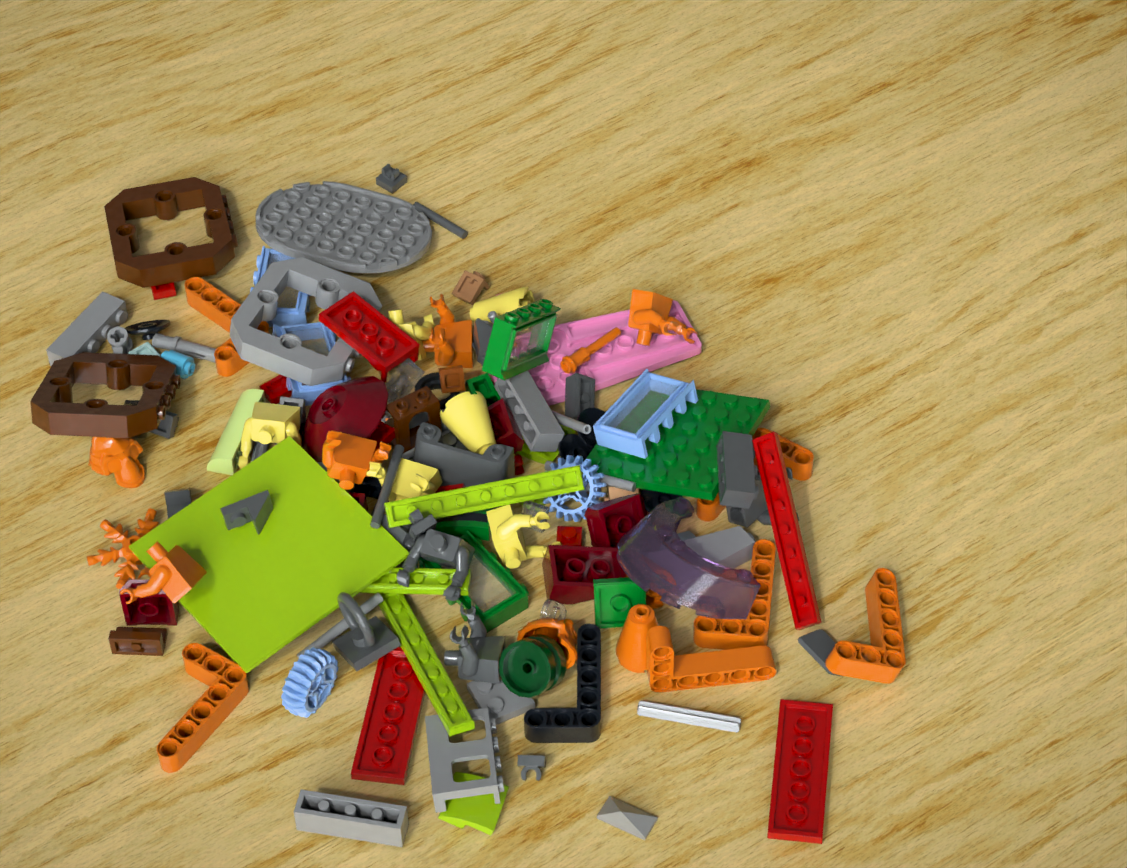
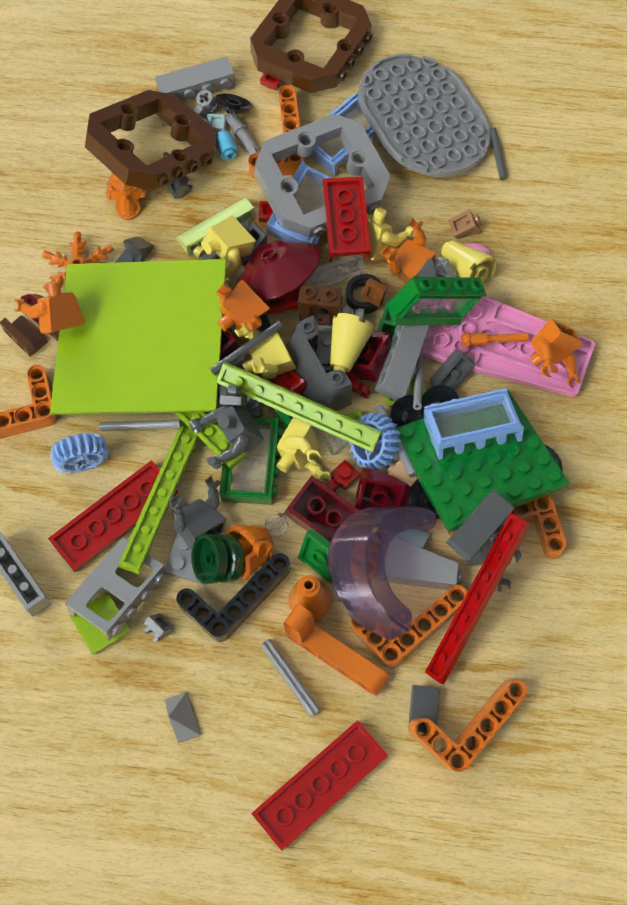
camera: 45 degrees right, 20 degrees up
(254, 509) = (147, 299): dark grey slope -> none
(367, 638) = (142, 449): dark grey tile -> none
(391, 179) = (495, 96): dark grey tile -> none

